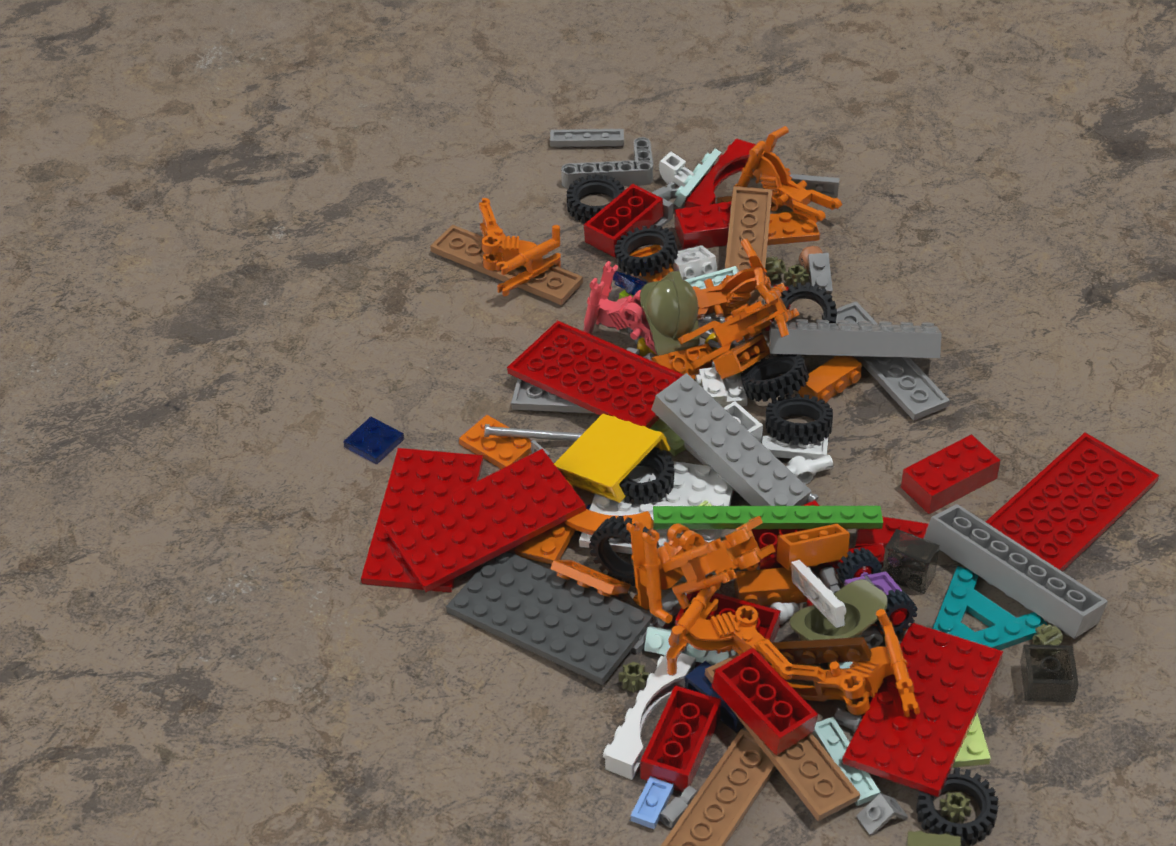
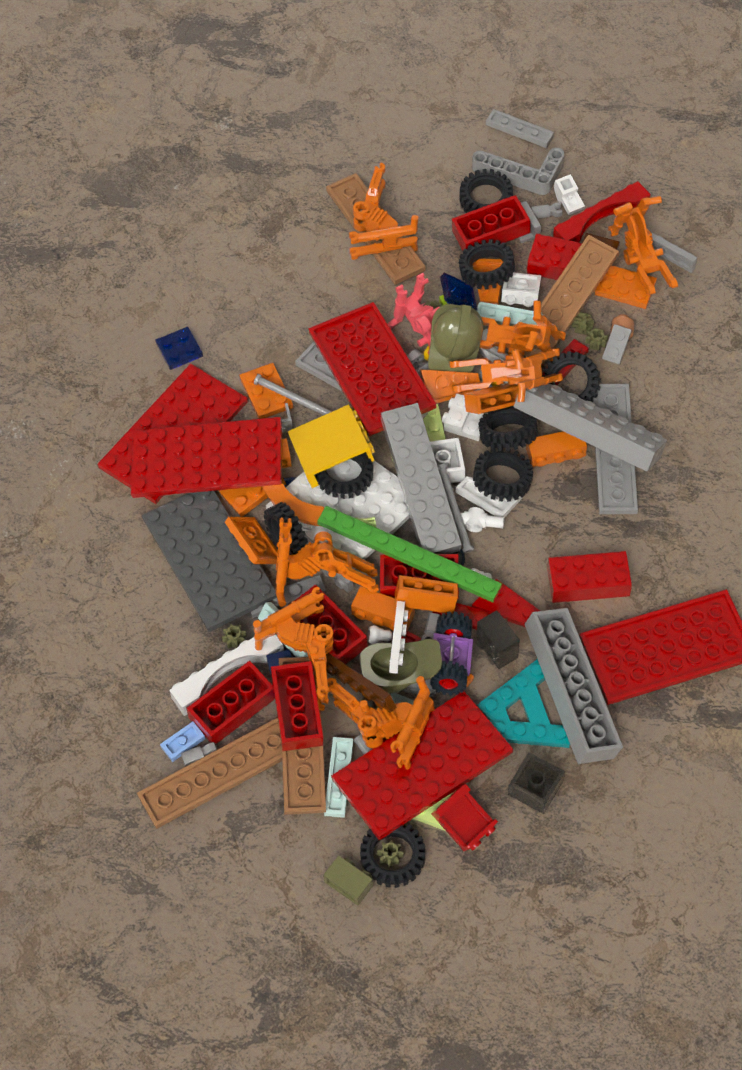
camera: 30 degrees right, 15 degrees up
(692, 181) = (583, 203): light aqua plate -> none
(720, 556) = (337, 578): orange piece -> none
(879, 812) = (335, 829): light grey bracket -> none
(1005, 739) = (464, 819): none -> red panel
(1047, 635) = (559, 754): olive gear -> none

